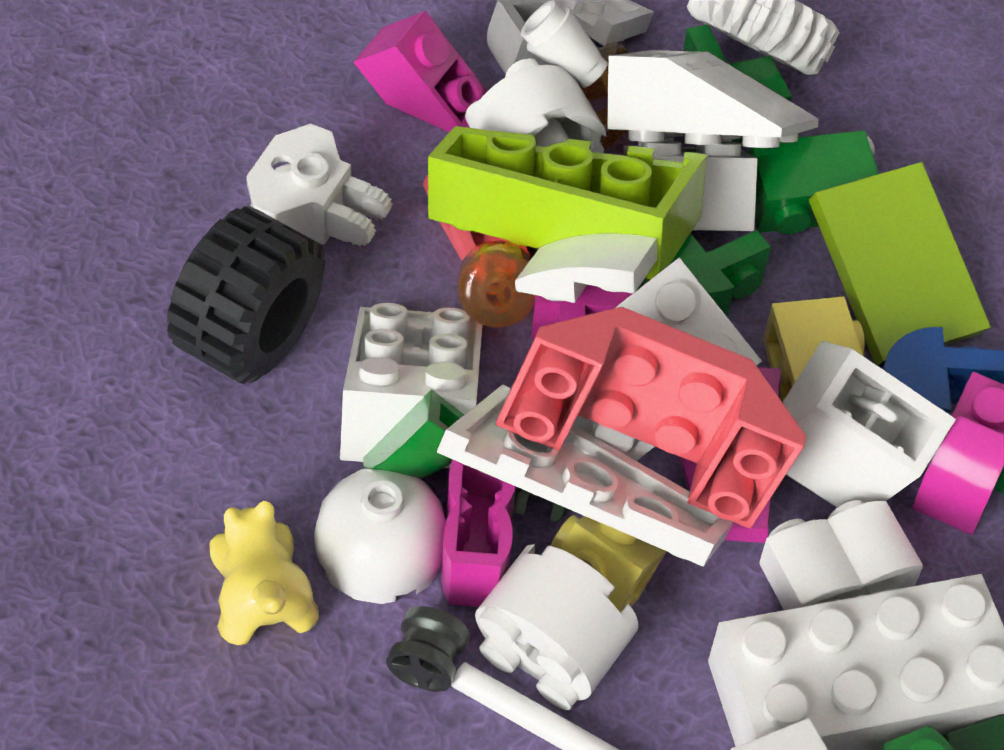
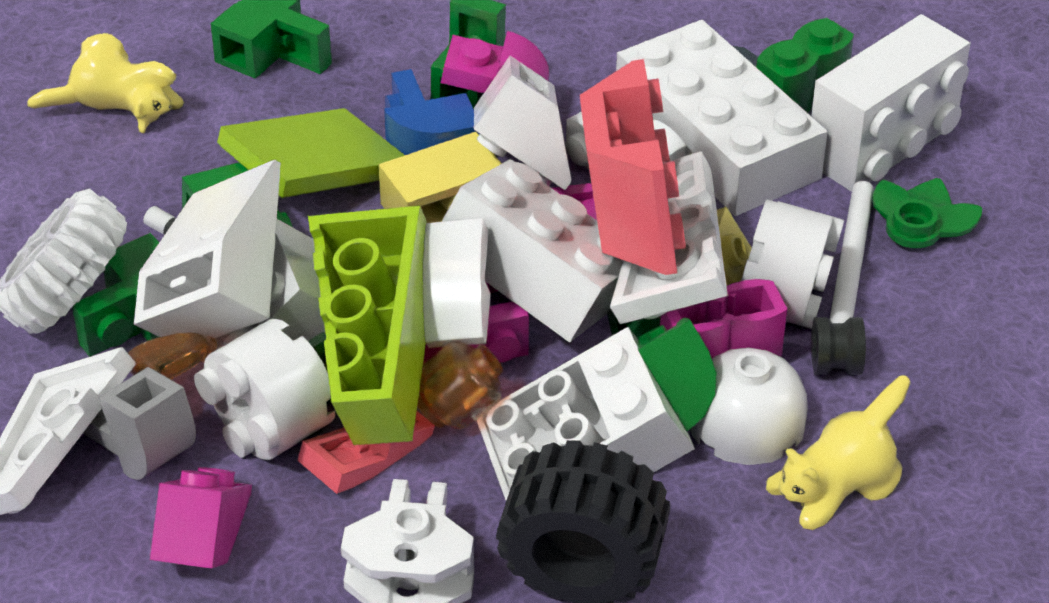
camera: 105 degrees left, 10 degrees down
(561, 41) = (174, 363): white cone -> none

